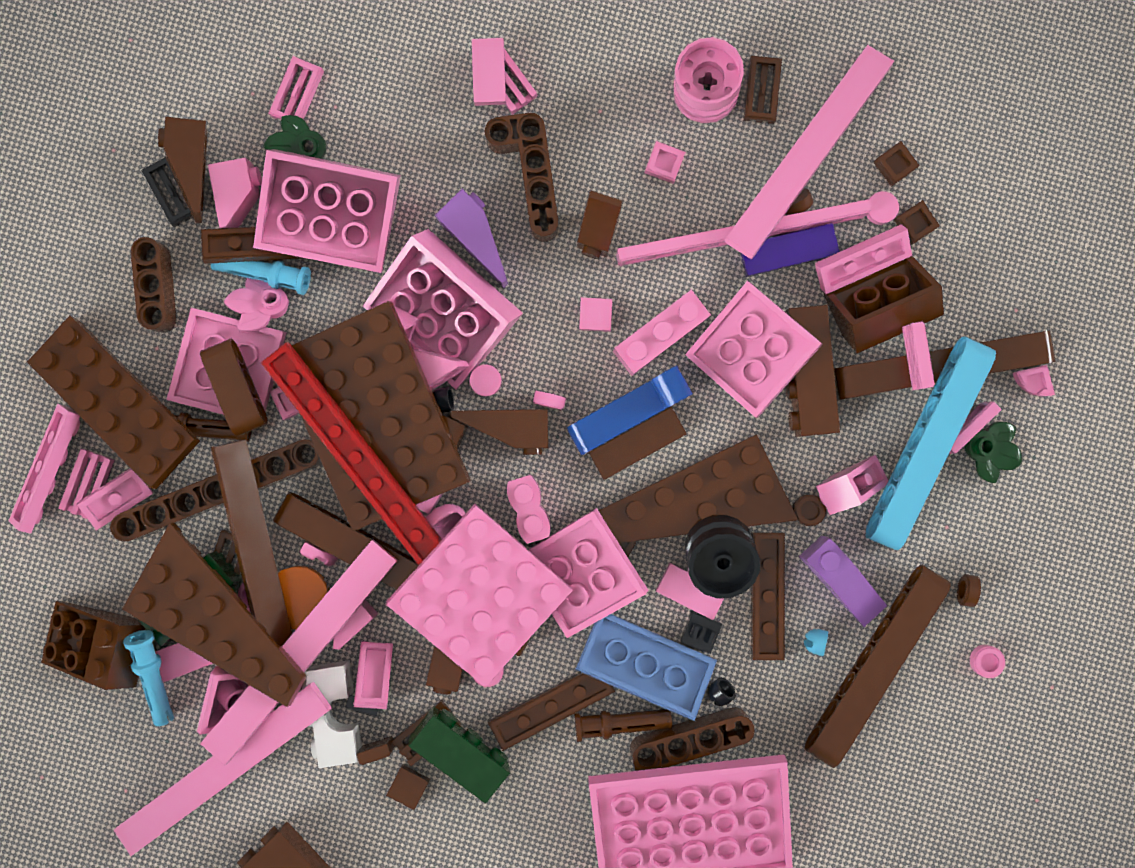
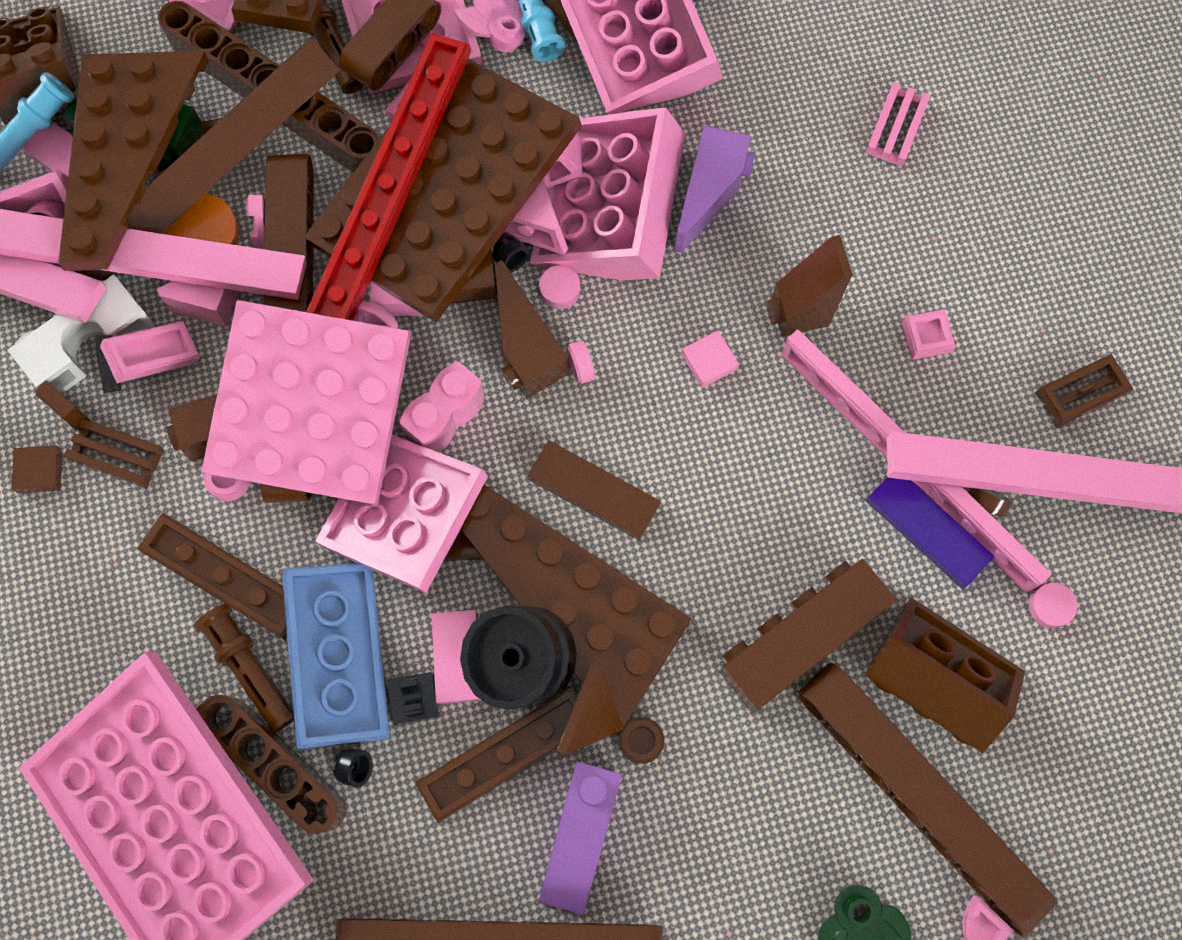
camera: 60 degrees right, 15 degrees down
(460, 753) = (106, 497): dark green brick -> none
(488, 71) = (892, 98): bright pink tile -> none
(533, 178) = (811, 205): reddish brown beam -> none
(629, 410) = (628, 455): blue beam -> none
(661, 332) = (762, 443): bright pink arch -> none
(711, 63) = (1049, 315): bright pink wheel -> none
(753, 349) = (787, 547): bright pink plate -> none
(782, 534) = (592, 716): none -> reddish brown slope
(816, 641) = (484, 850): medium azure hinge -> none
(852, 485) = (706, 771): bright pink slope -> none
(863, 259) = (980, 618): bright pink plate -> none
(896, 163) = (1115, 591): reddish brown tile -> none
(918, 221) = (1066, 658): reddish brown tile -> none
(918, 356) = (912, 743): bright pink tile -> none
(930, 442) = (818, 831): medium azure beam -> none
(974, 423) = (870, 875): bright pink tile -> none

